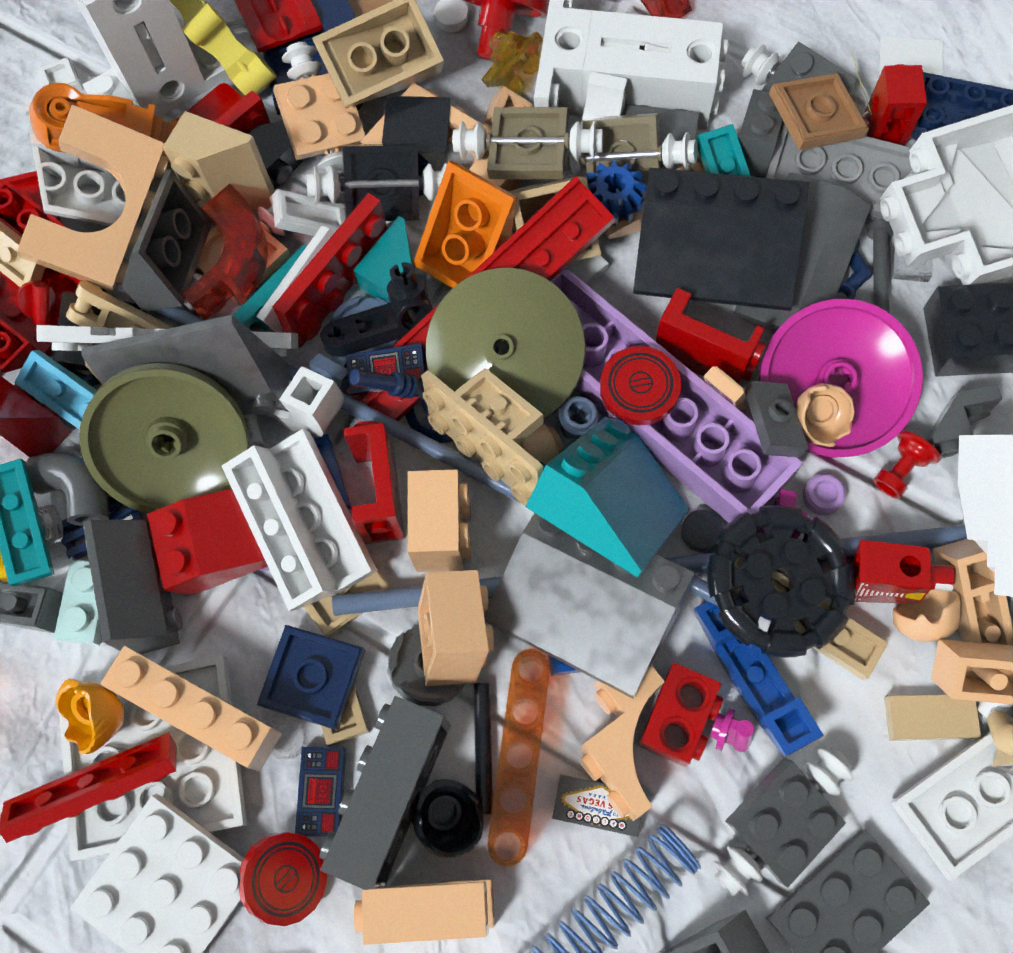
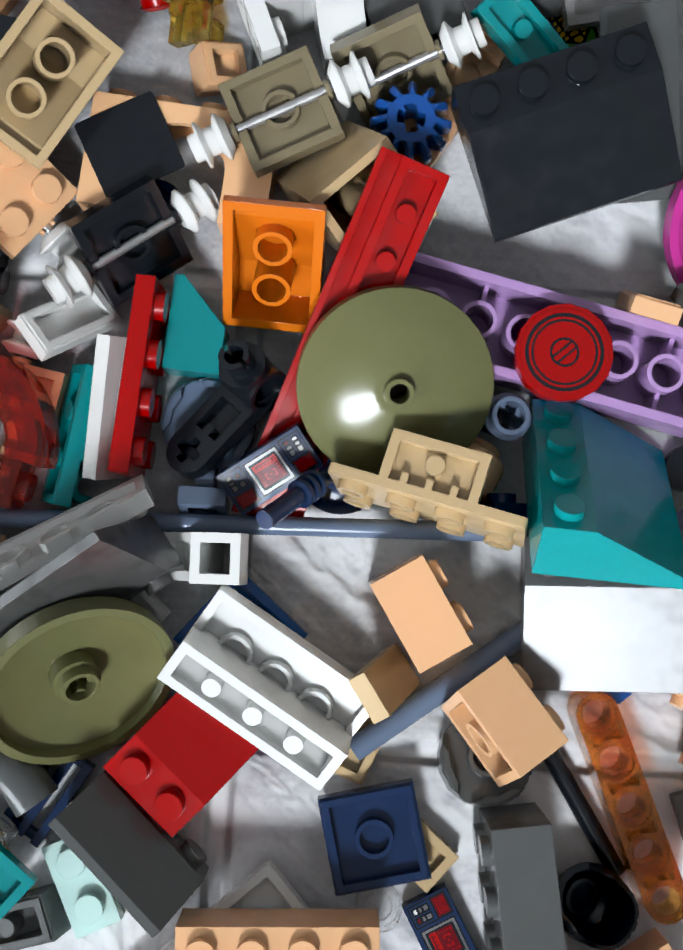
camera: 35 degrees left, 15 degrees up
(382, 519) = (364, 634): red panel -> none
(382, 560) = (384, 683): none -> tan tile
(703, 346) = (601, 269): red panel -> none

